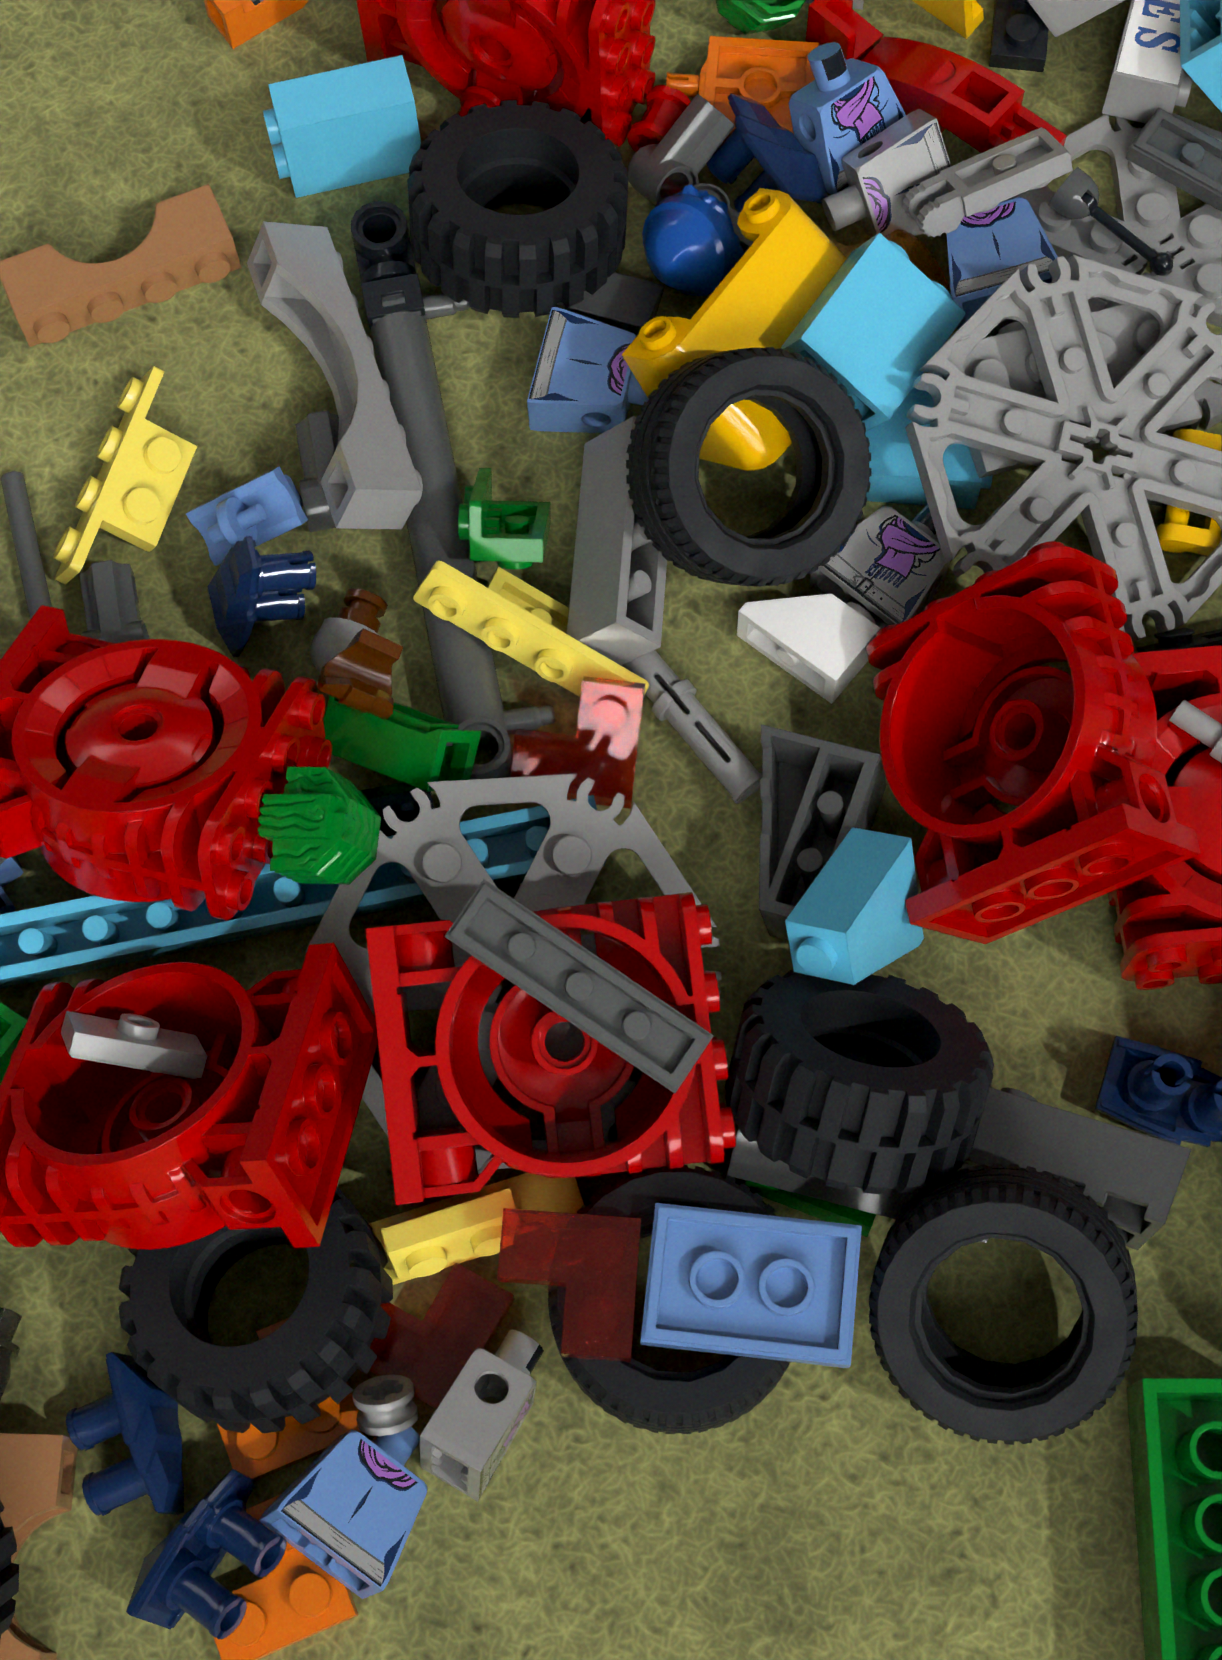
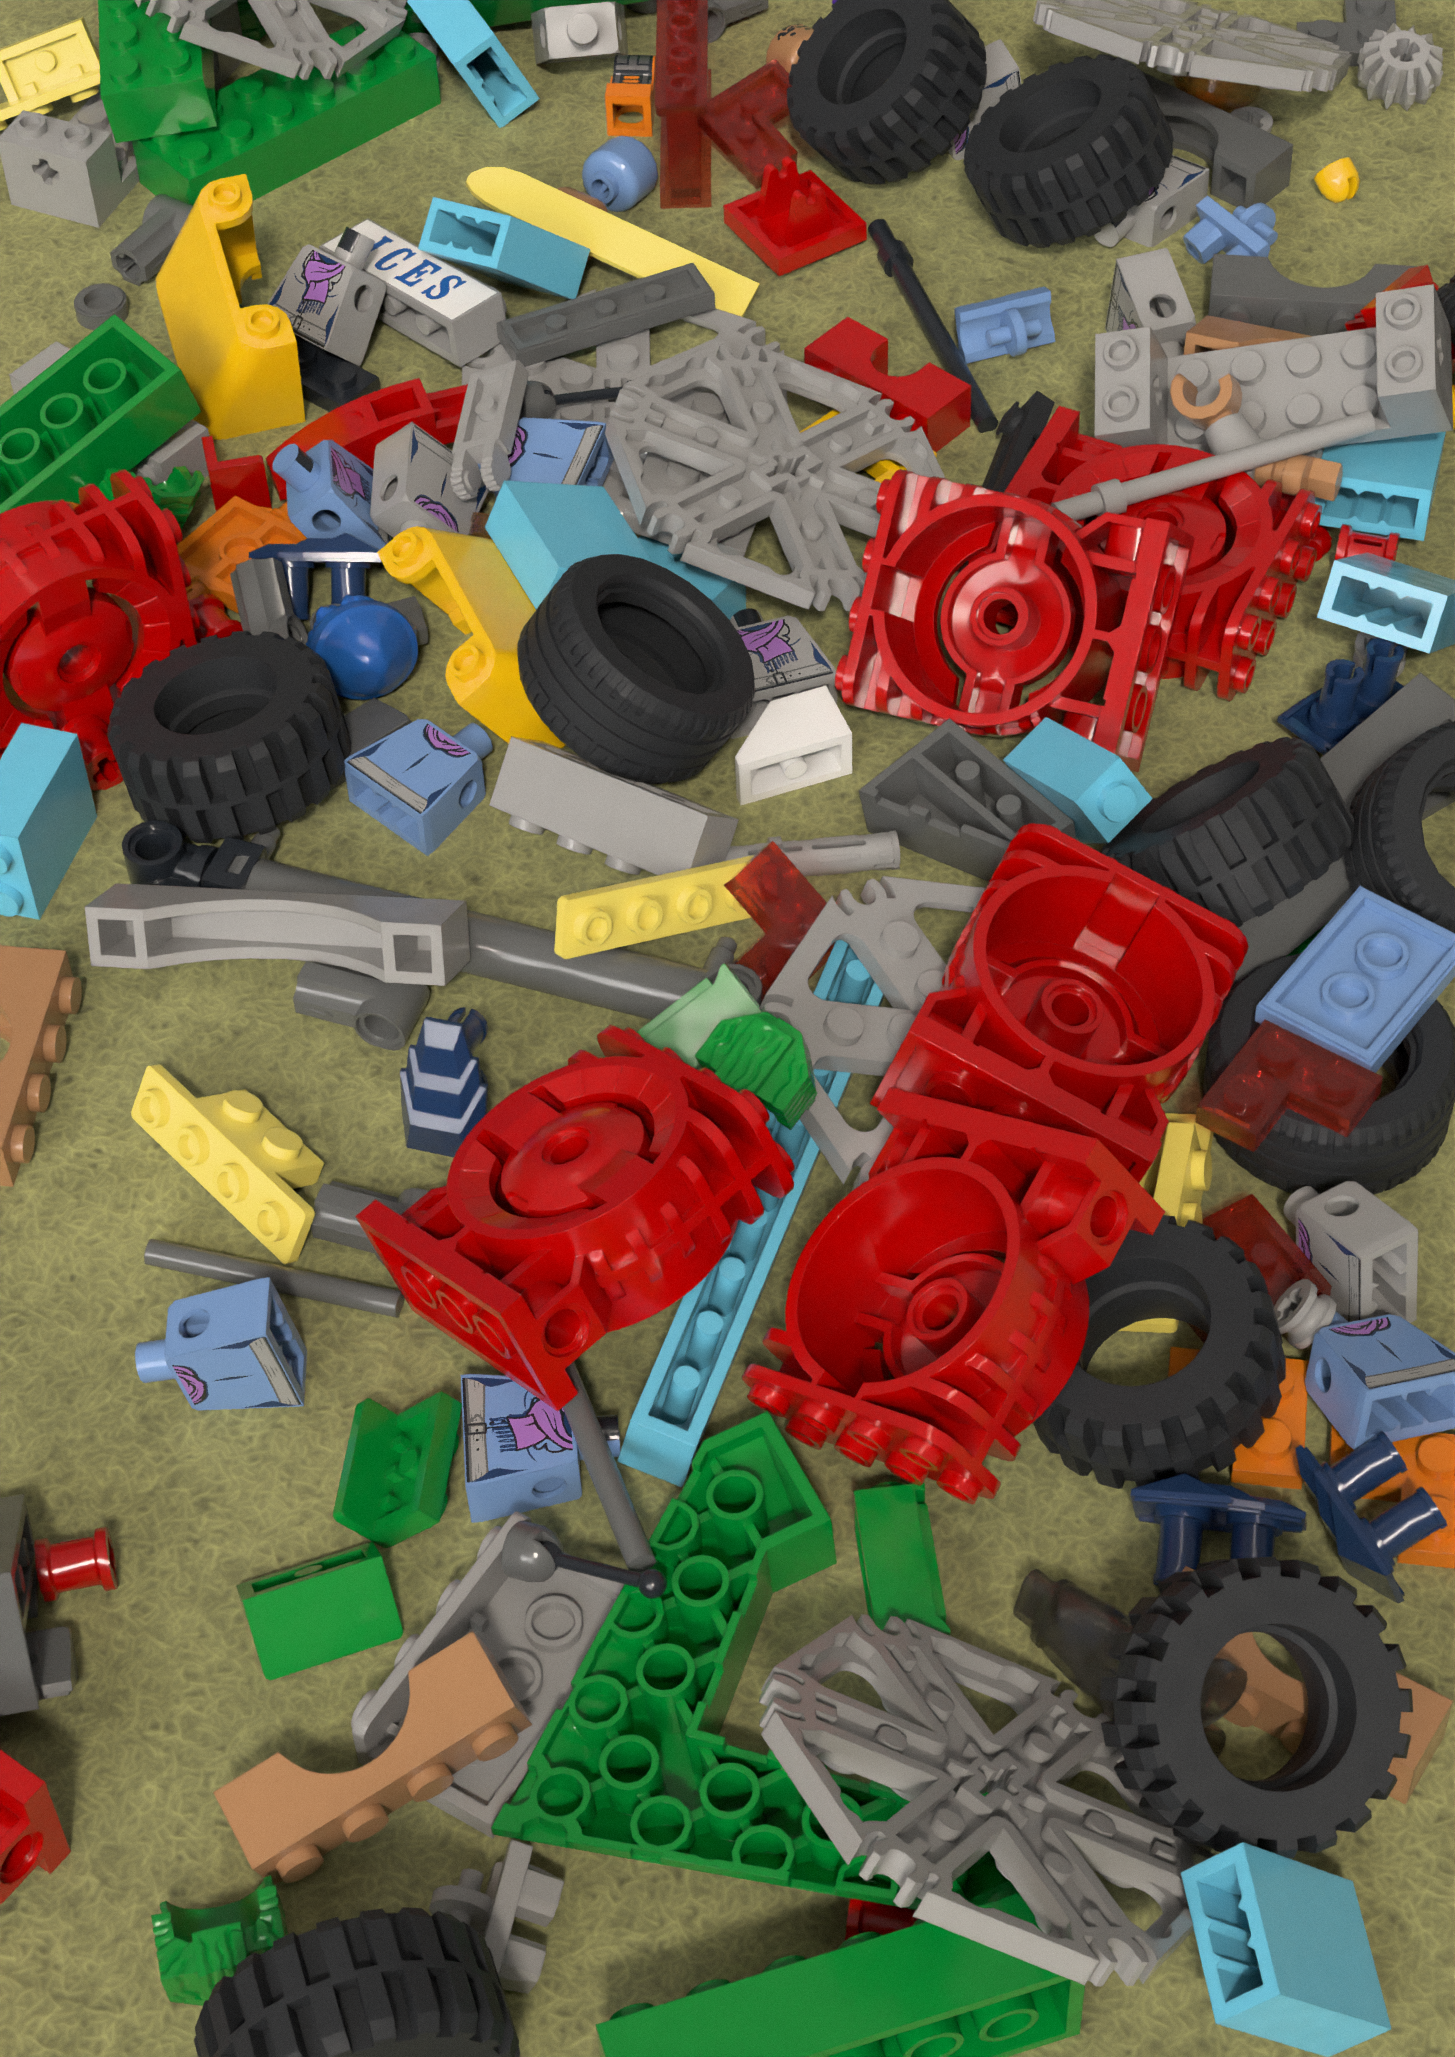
camera: 60 degrees left, 20 degrees down
(133, 1043) = (863, 1302): light grey plate -> none
(255, 509) = (367, 1060): medium blue hips -> none
(354, 657) = (617, 1001): reddish brown piece -> none
(502, 530) = (525, 886): green bracket -> none
(579, 986) = (1053, 924): dark grey tile -> none

